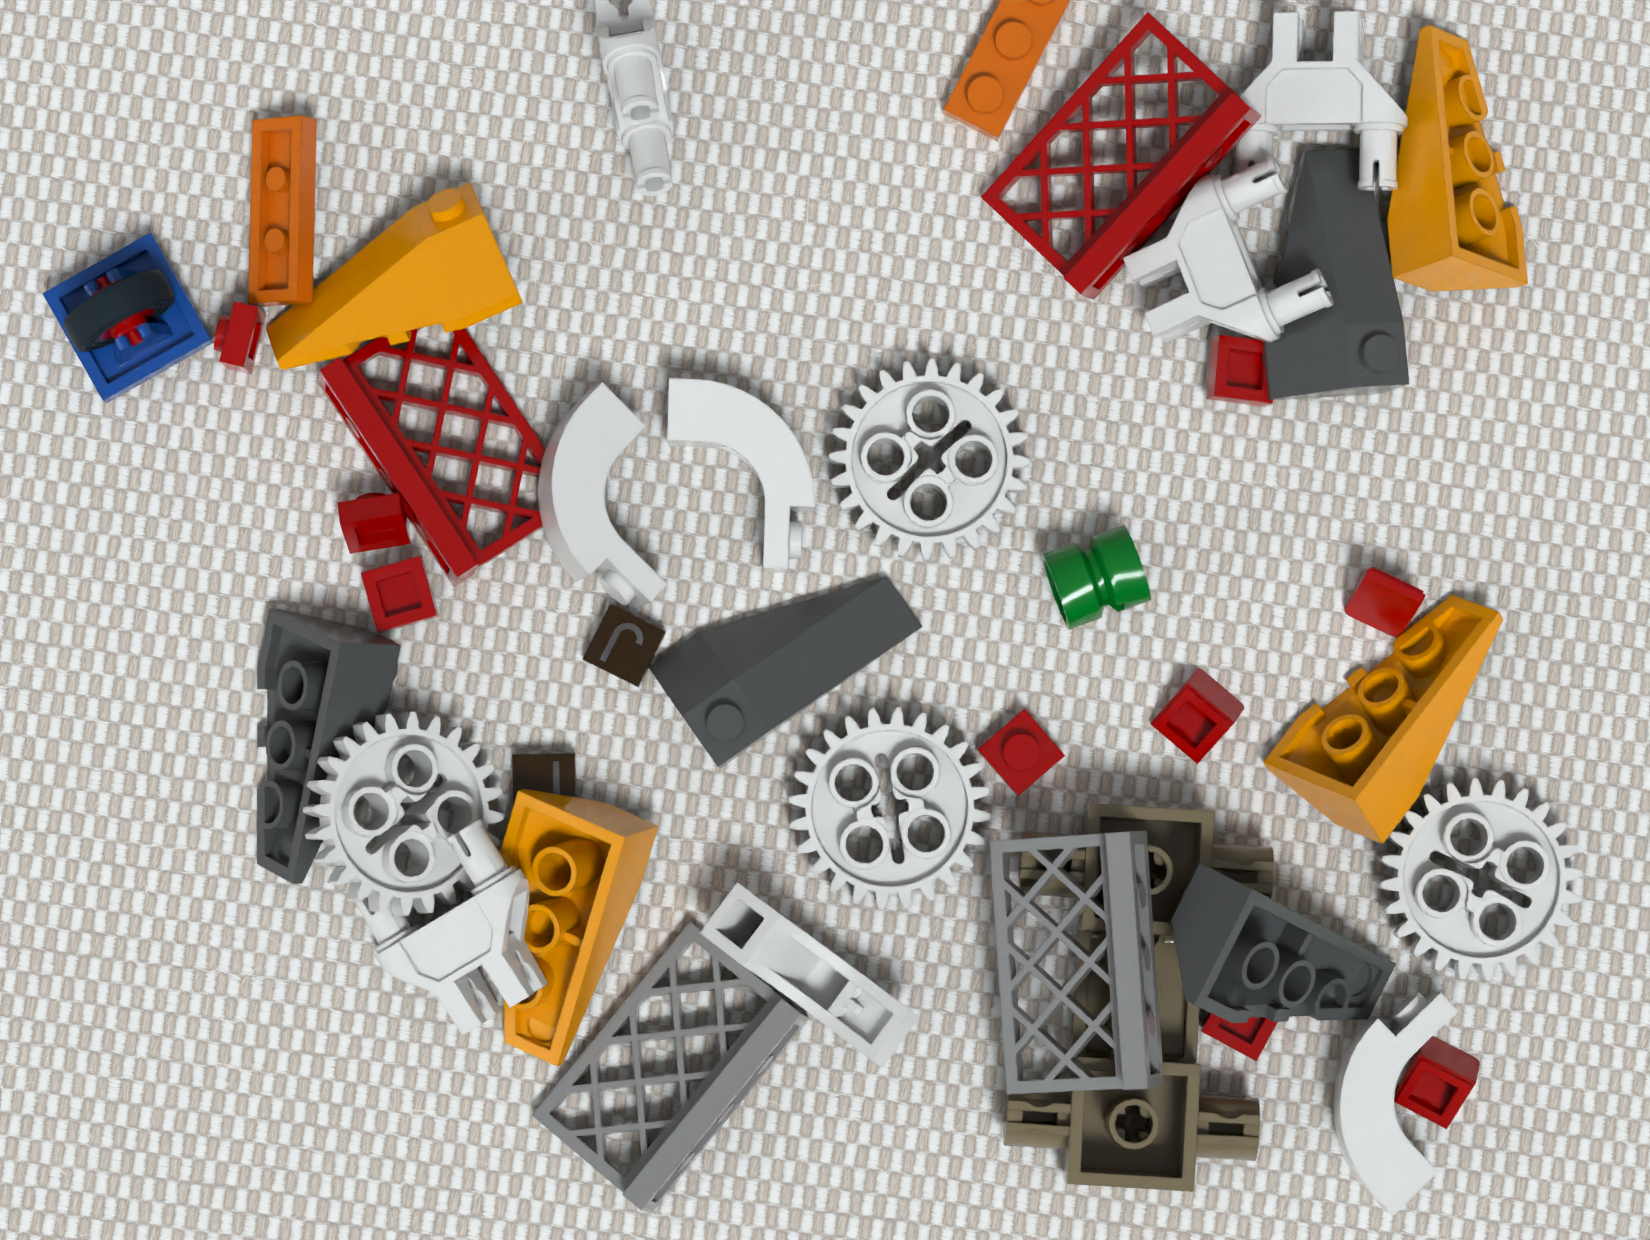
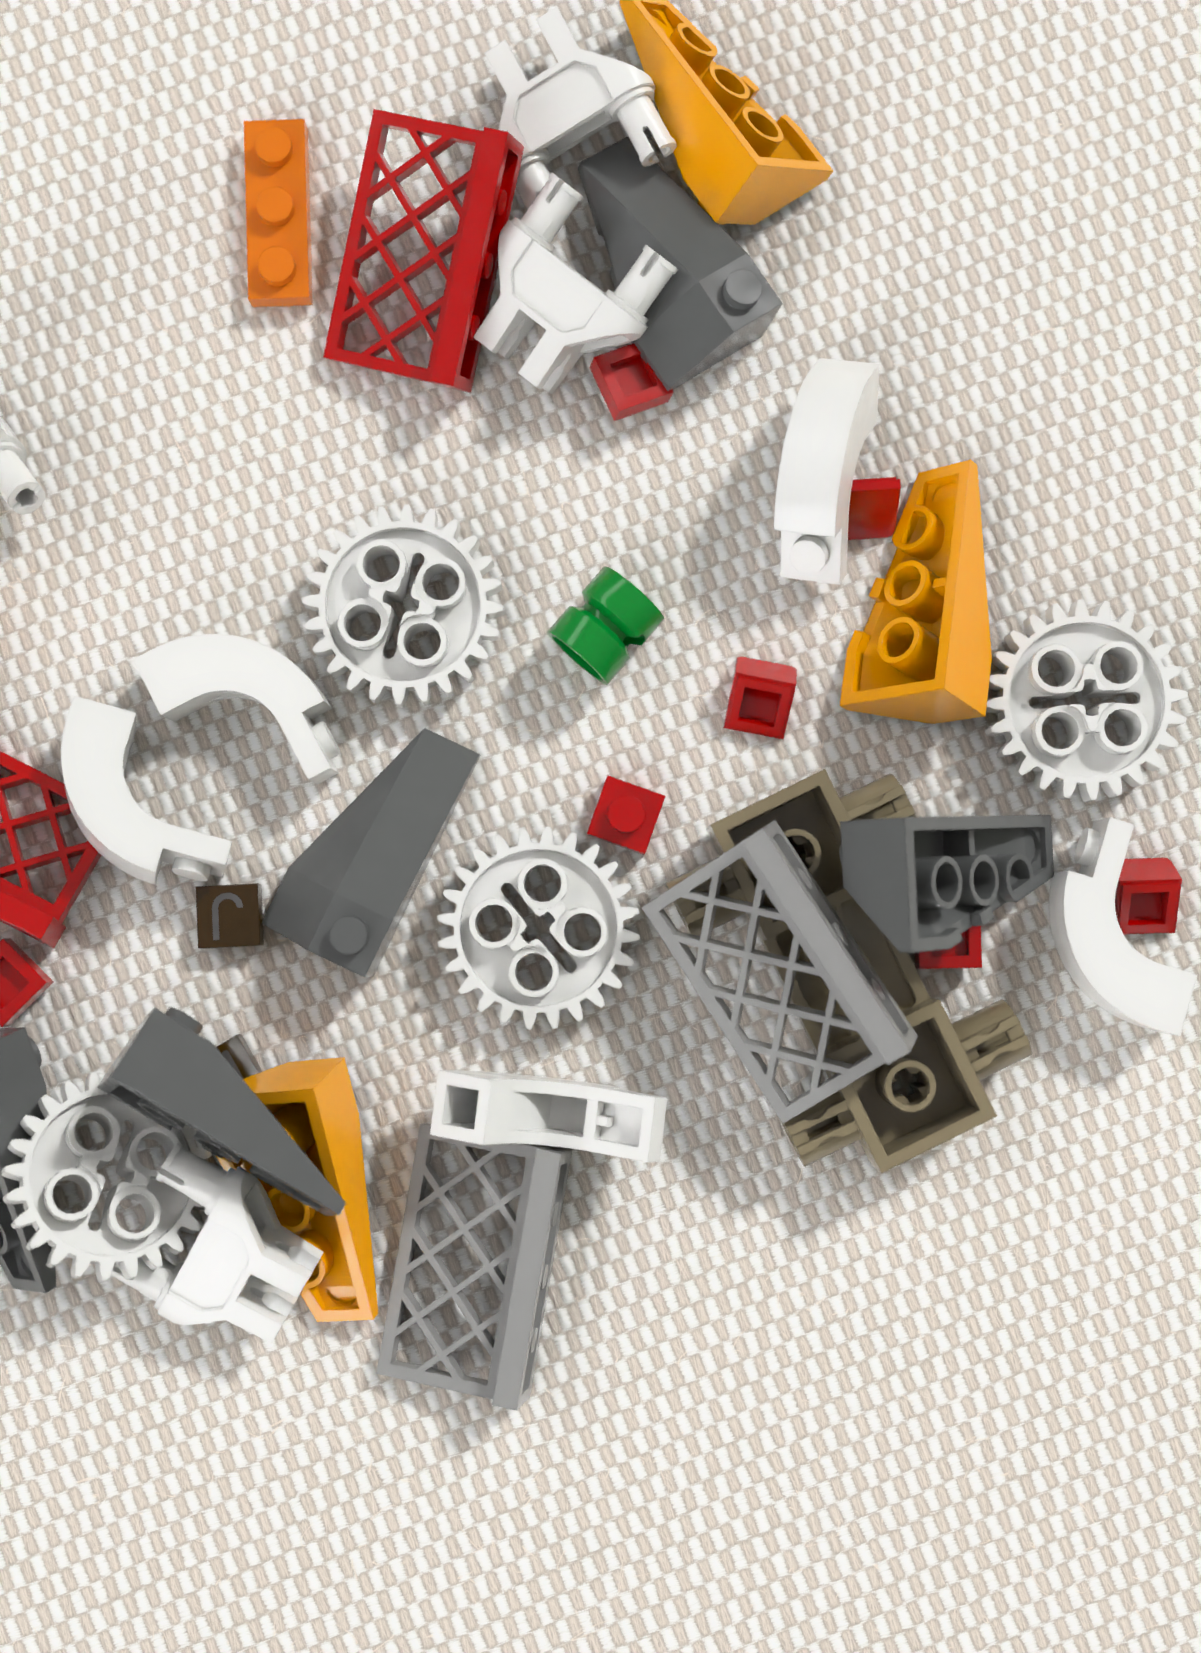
camera: 30 degrees left, 0 degrees up
(523, 772) = (185, 1080): none -> dark grey wedge
(1362, 540) = (818, 467): none -> white arch

